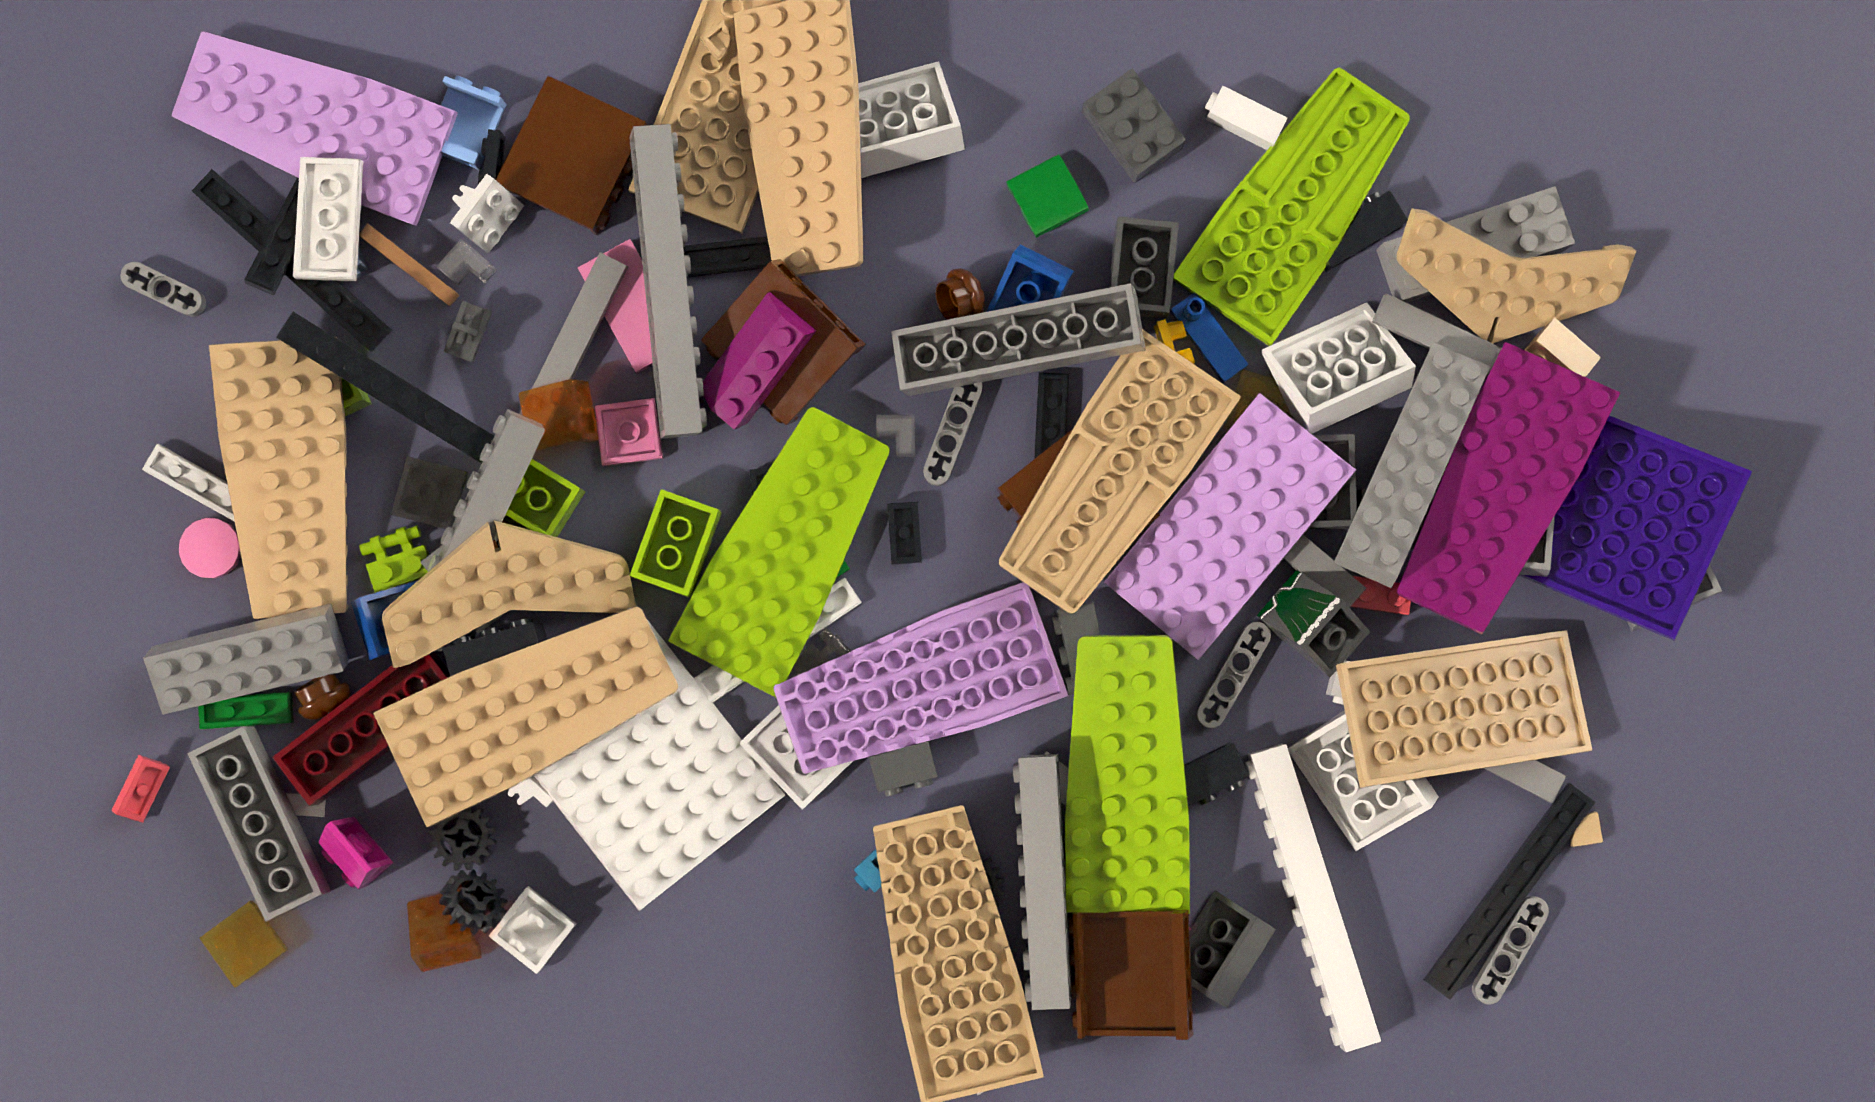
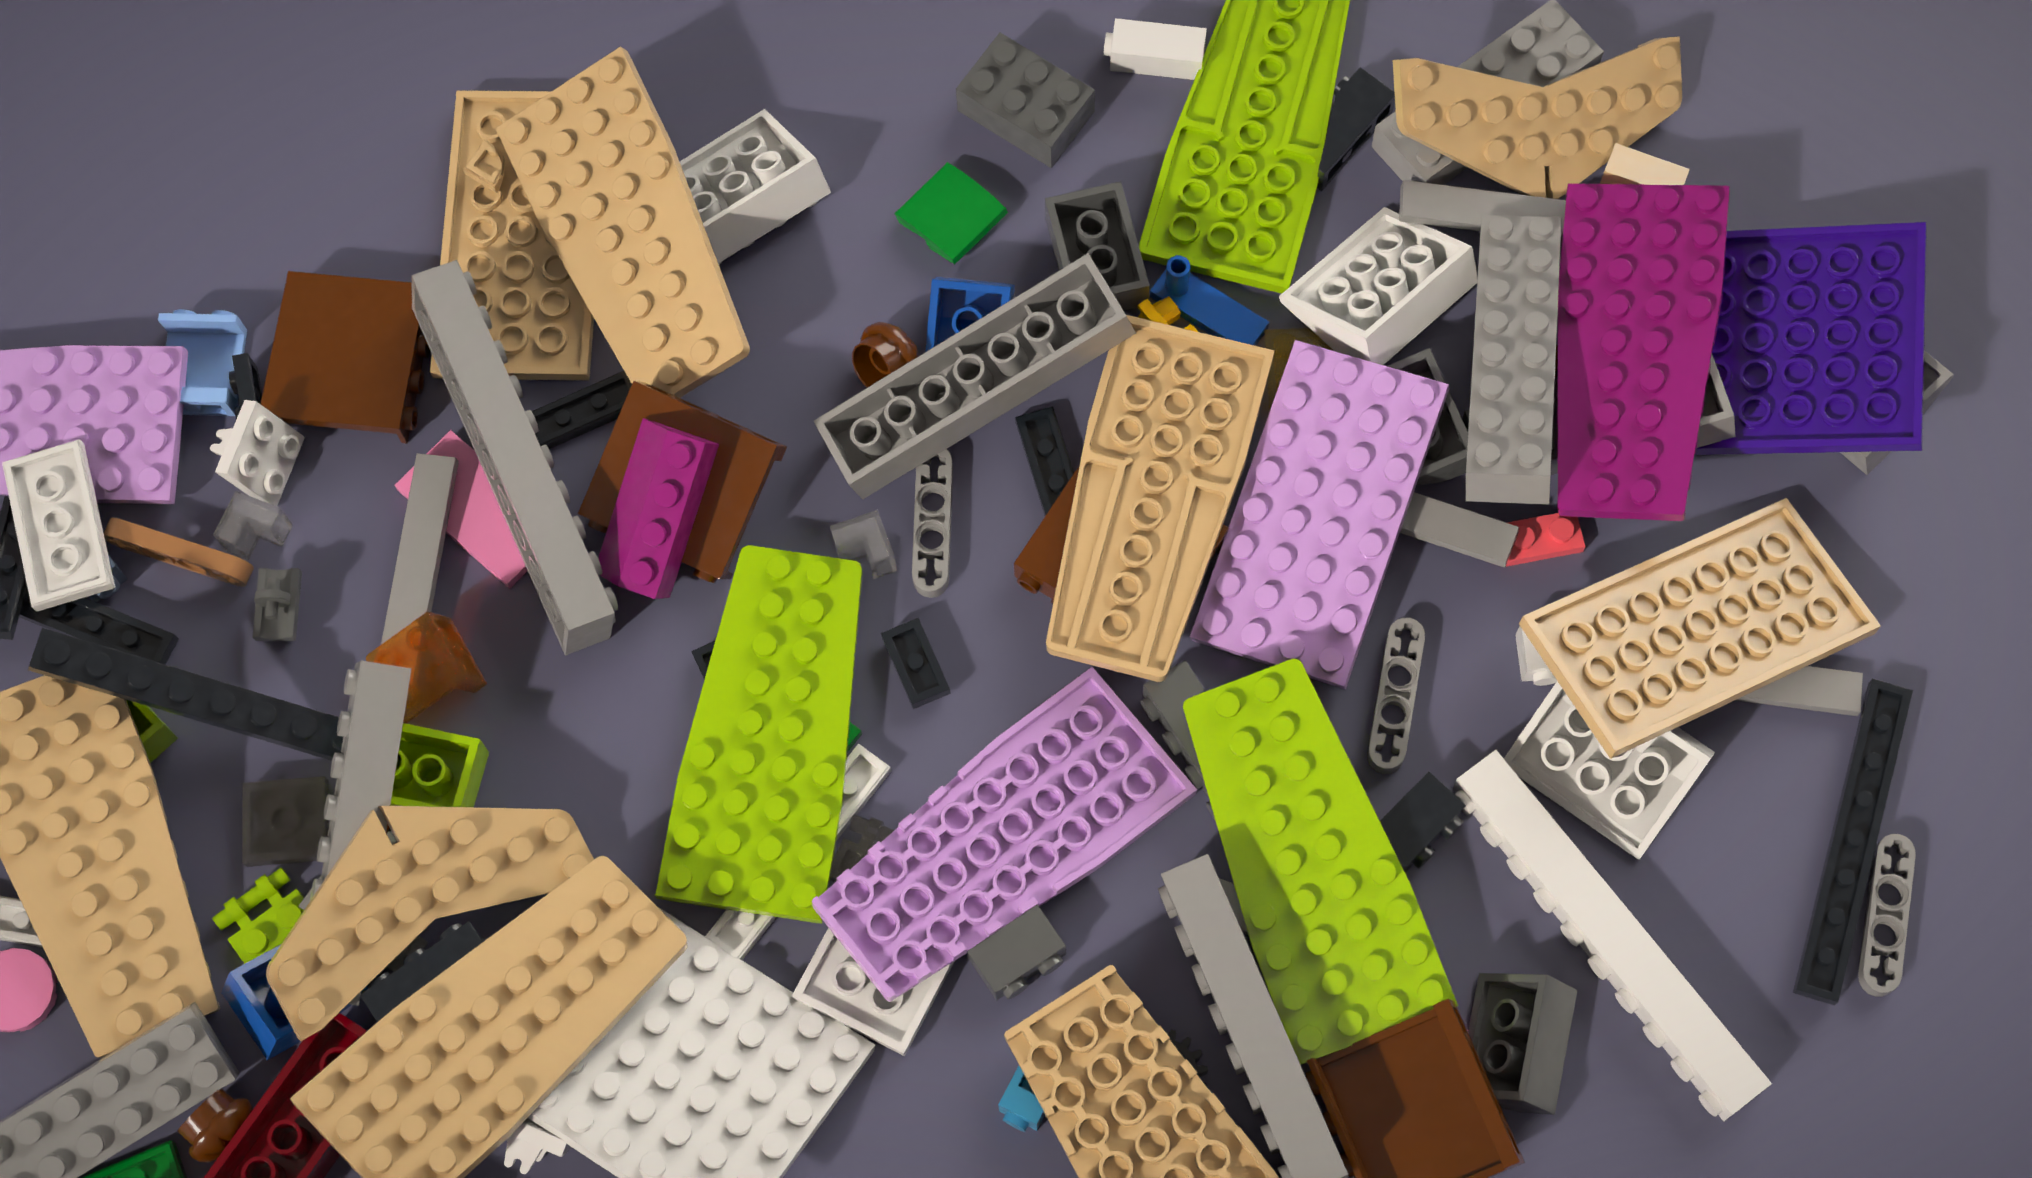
camera: 15 degrees left, 15 degrees down
(628, 432) = (522, 661): bright pink tile -> none
(675, 543) = (626, 771): lime brick -> none
(1314, 622) = (1471, 589): dark grey slope -> none
(1588, 831) = (1919, 733): tan tile -> none

